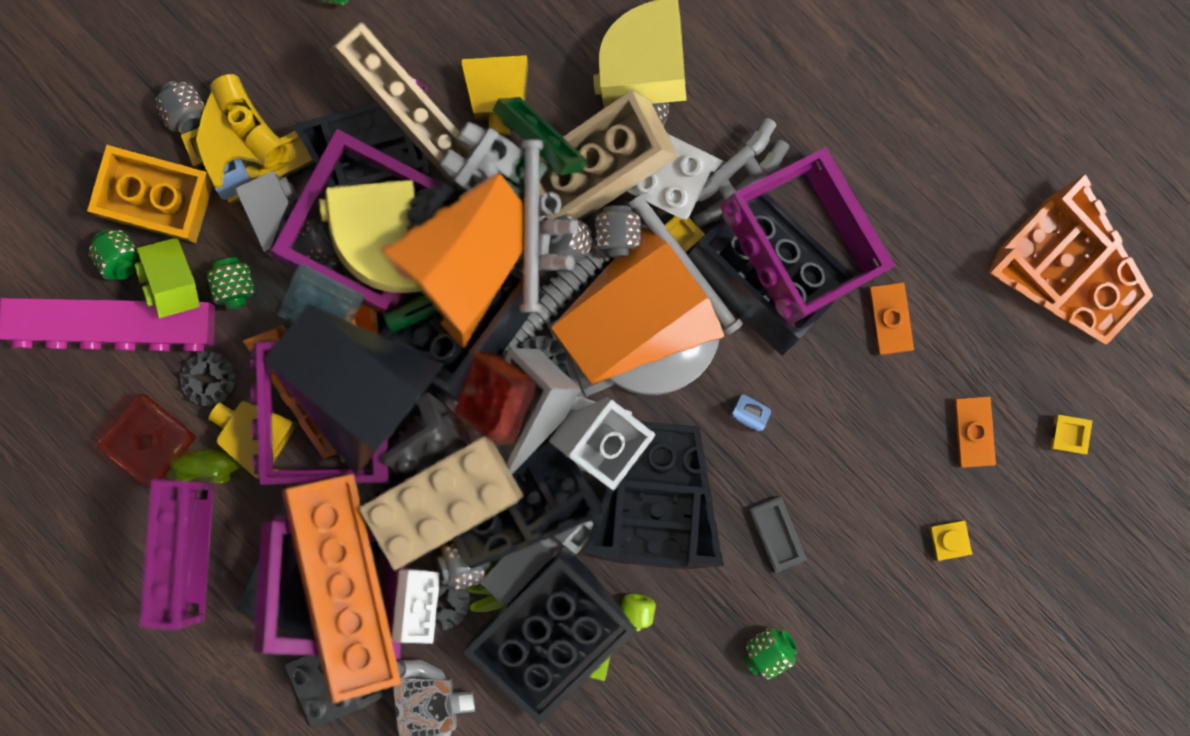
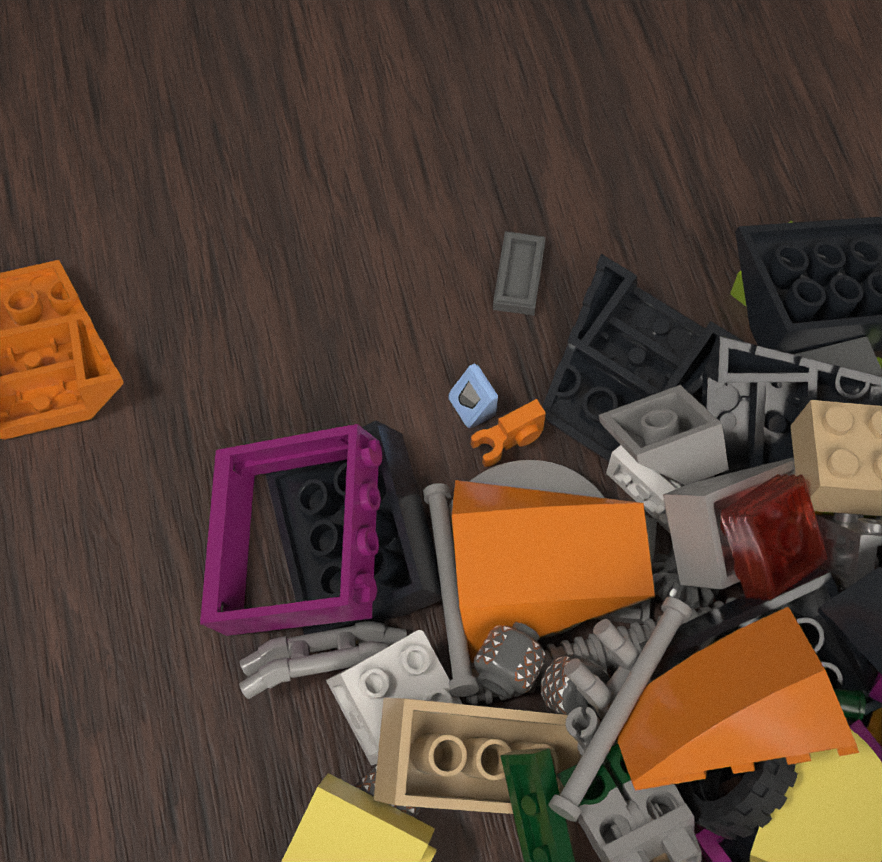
camera: 150 degrees left, 20 degrees down
(639, 609) = (713, 277): lime piece -> none
(684, 232) = (432, 623): yellow plate -> none
(706, 407) = (515, 428): none -> orange plate
(770, 653) = (597, 167): green head -> none
(891, 318) = (257, 408): orange plate -> none
(950, 540) = (347, 176): yellow plate -> none
(974, 432) = (251, 257): orange plate -> none
(1071, 434) = (158, 201): yellow plate -> none

